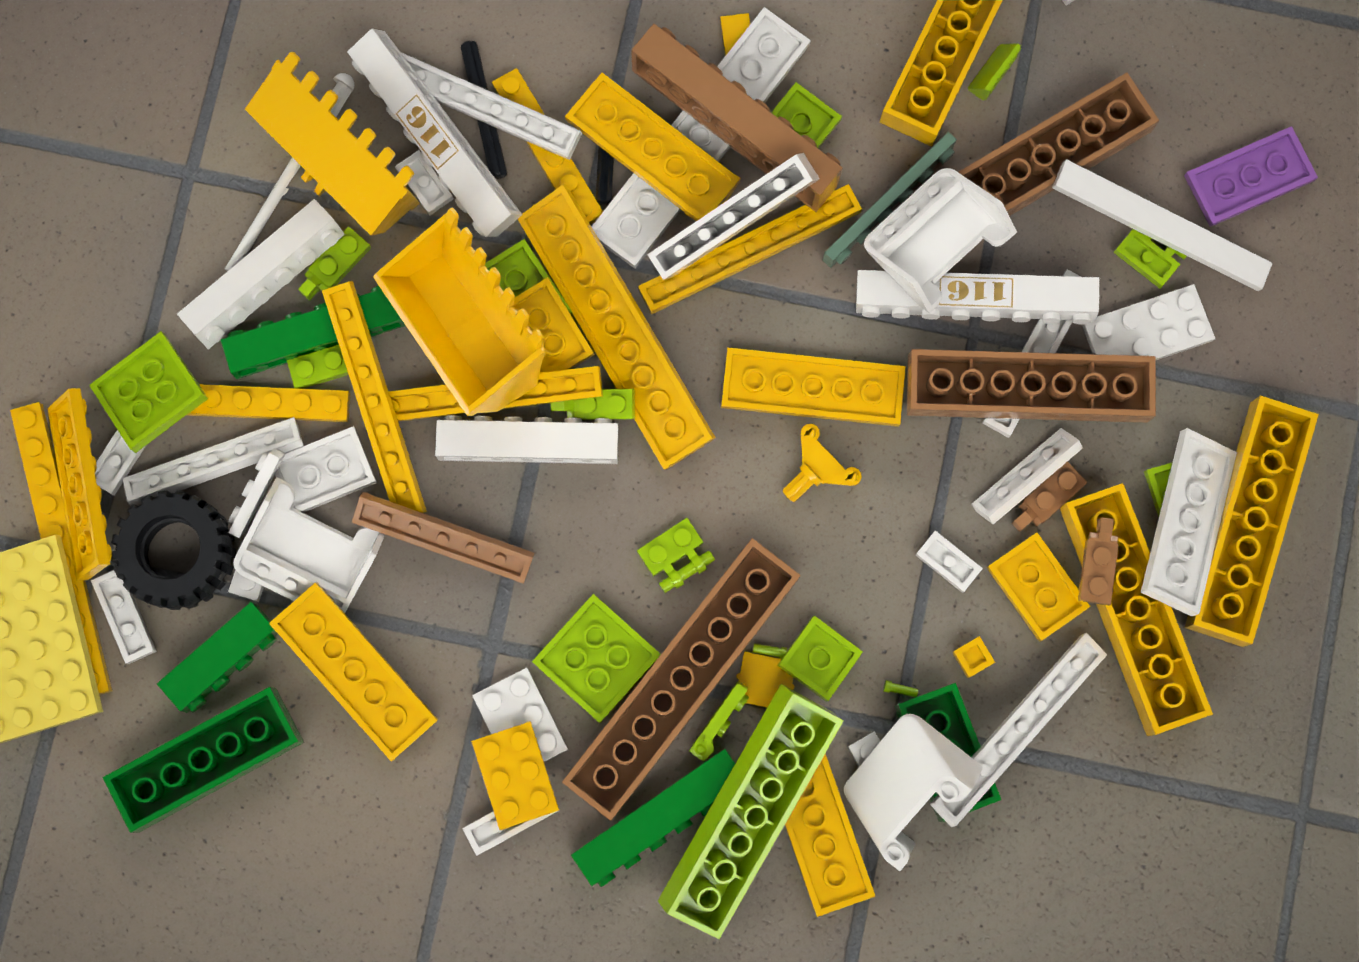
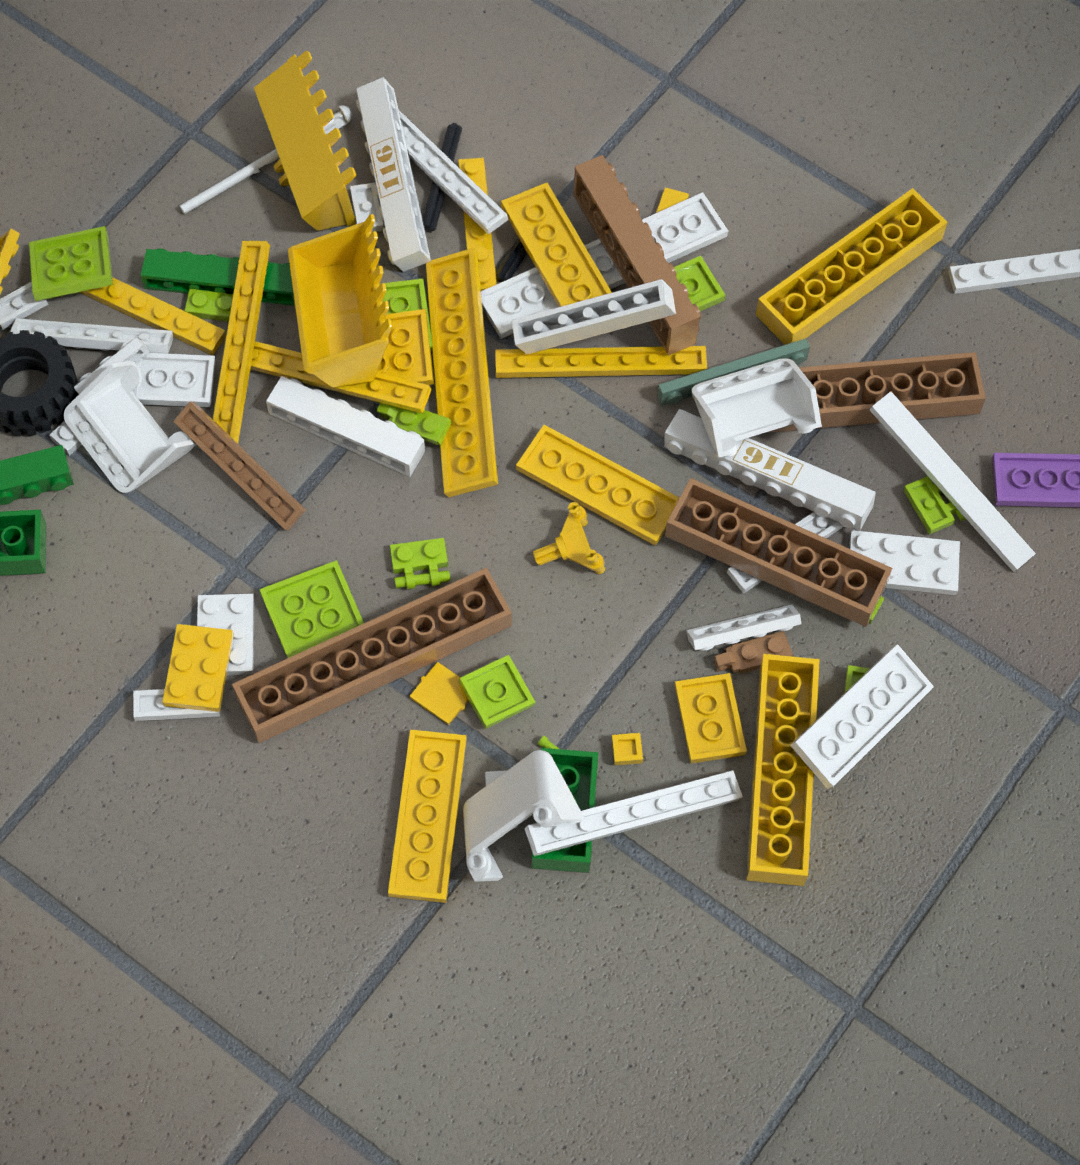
camera: 25 degrees right, 15 degrees down
(261, 274) = (204, 218): white brick -> none
(334, 263) = (276, 233): lime hinge -> none
(353, 671) = (113, 533): yellow plate -> none
(653, 821) = (297, 756): green brick -> none
(719, 722) = (387, 702): lime hinge -> none
(749, 812) = (373, 775): lime brick -> none
(770, 650) = (456, 668): lime piece -> none
(948, 561) = (644, 665): white plate -> none
(994, 70) = (870, 316): lime slope -> none
(1099, 564) = (766, 711): medium nougat hinge -> none
(1254, 519) = (918, 743): yellow brick -> none

